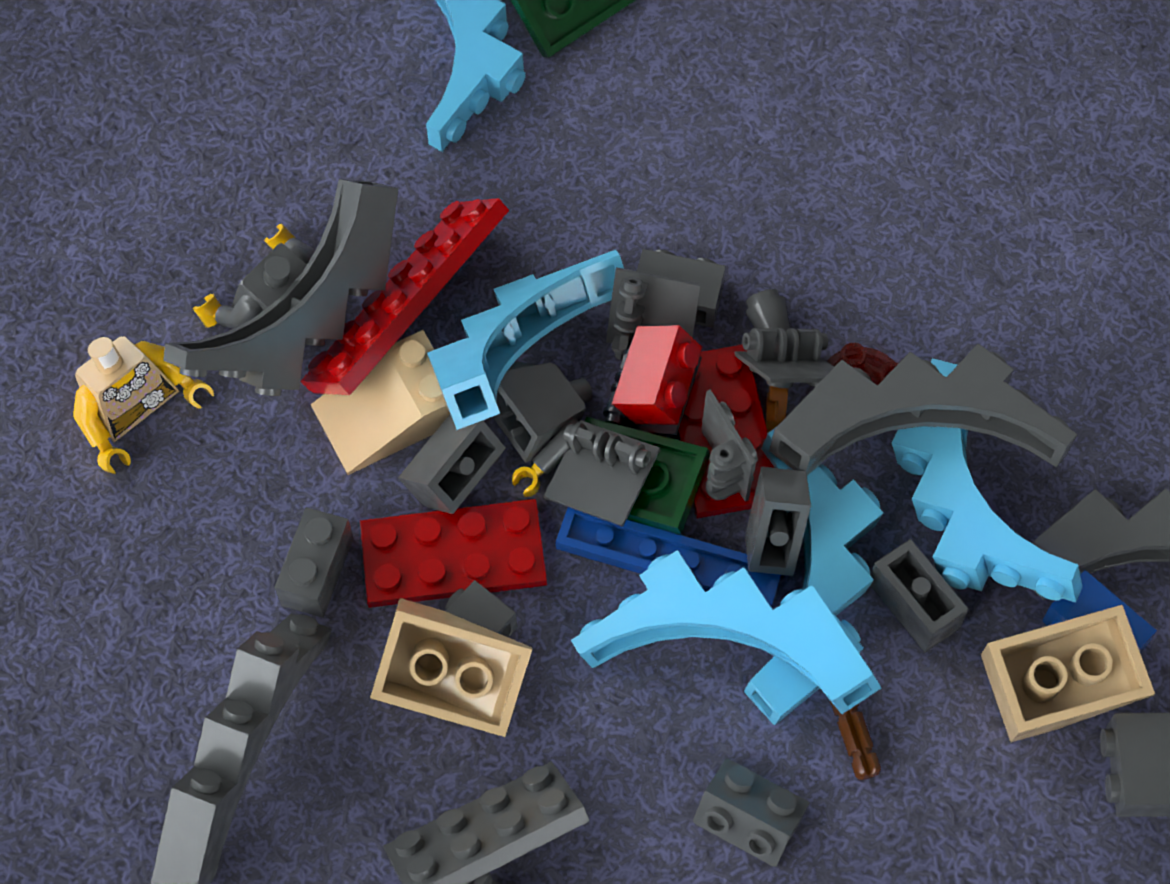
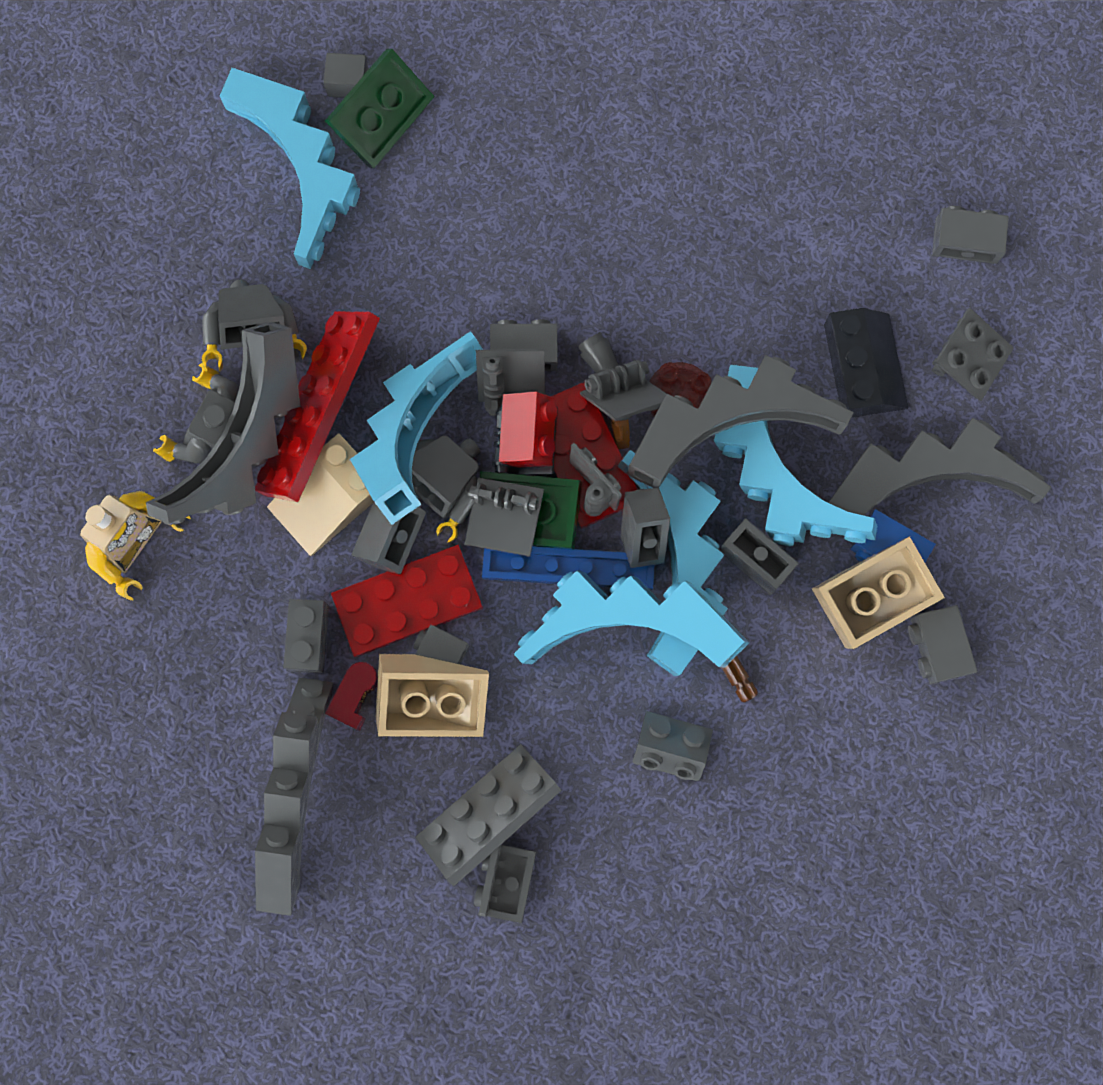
camera: 15 degrees left, 15 degrees up
(318, 178) = (240, 309): none -> dark grey torso
(351, 647) = (351, 694): none -> dark red leg
(1109, 397) = (865, 361): none -> black slope

